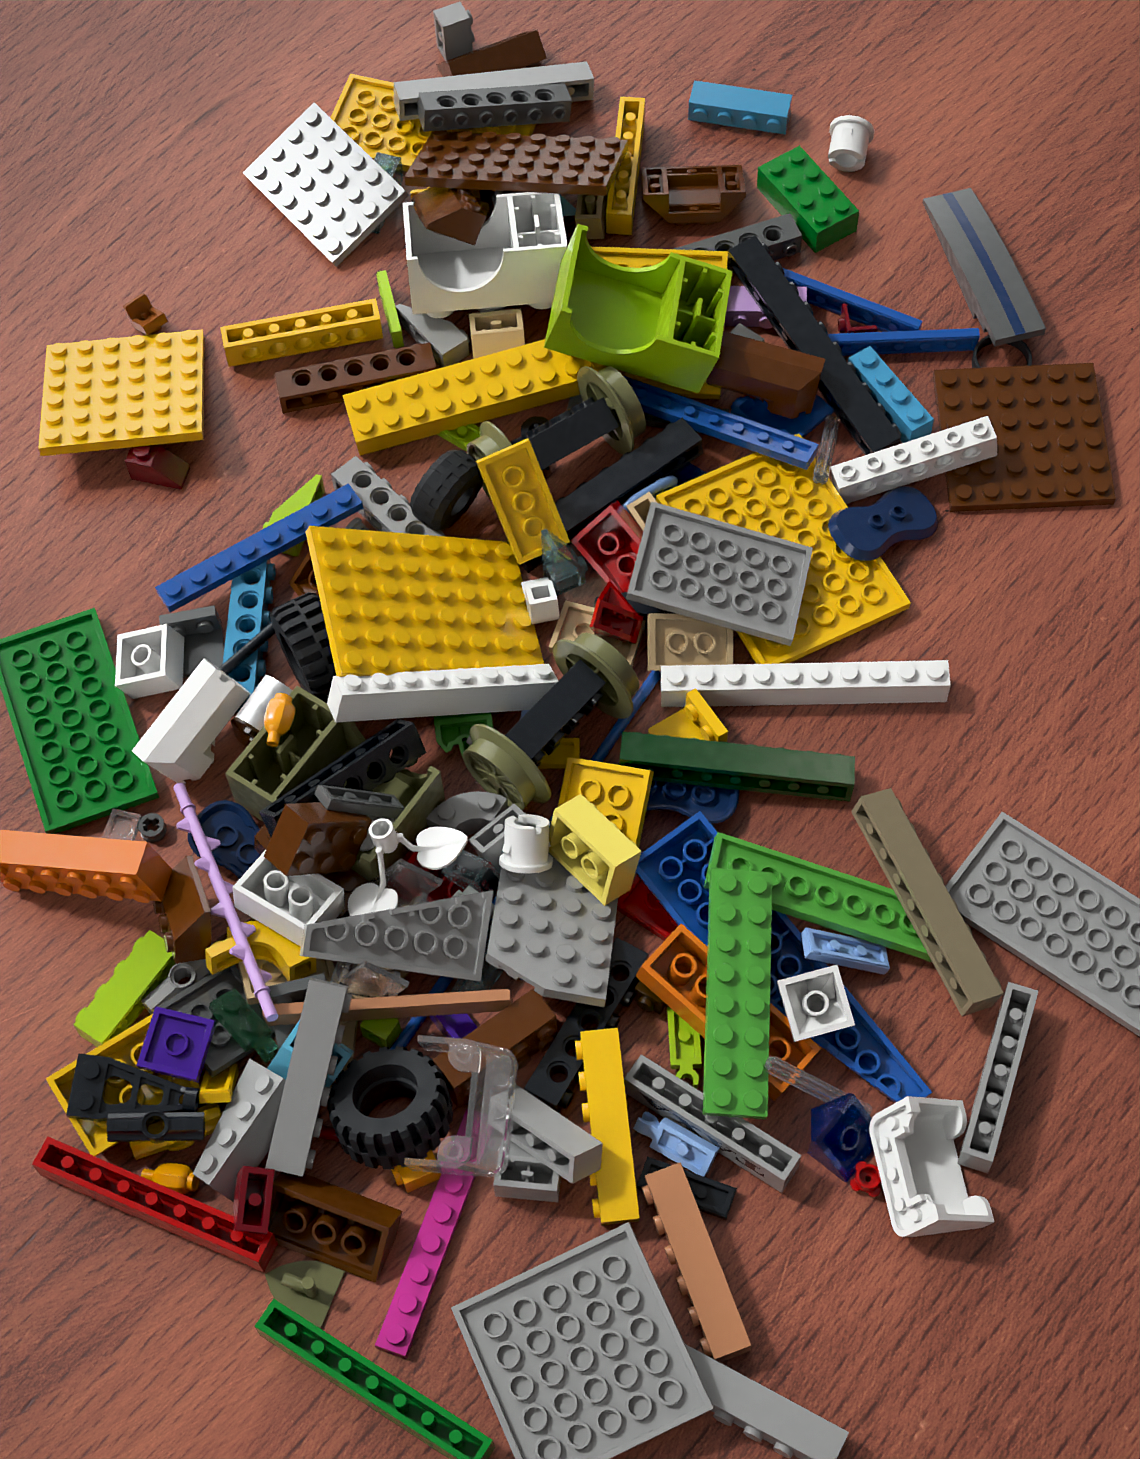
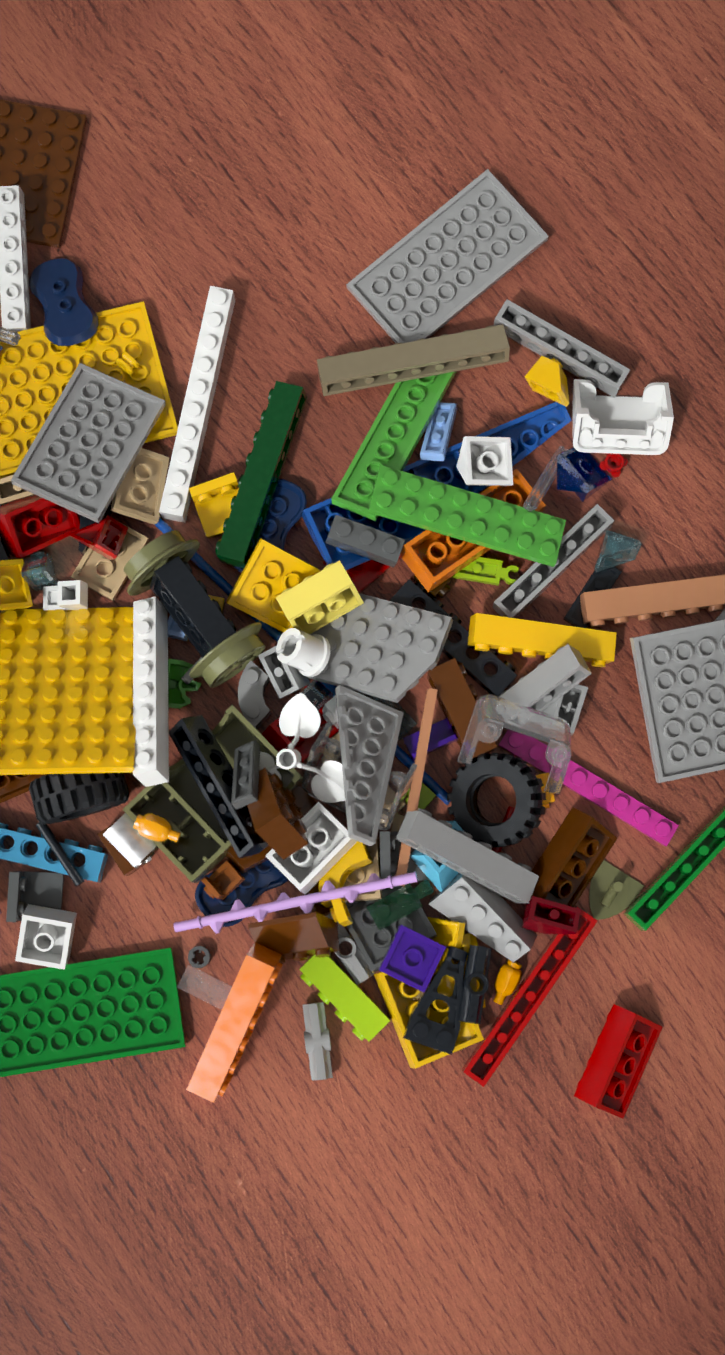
camera: 80 degrees left, 20 degrees up
(69, 973) = (317, 1041): none -> light grey piece
(86, 1336) = (618, 1061): none -> red slope
(183, 733) = (121, 905): white brick -> none
(237, 821) = (222, 881): none -> dark orange bracket
(676, 881) = (365, 541): none -> dark grey brick
(678, 1143) = (559, 593): light blue plate -> none
(749, 1198) = (616, 550): none -> clear light blue slope
(827, 596) = (127, 363): none -> yellow bush
(952, 1071) = (549, 380): none -> yellow slope

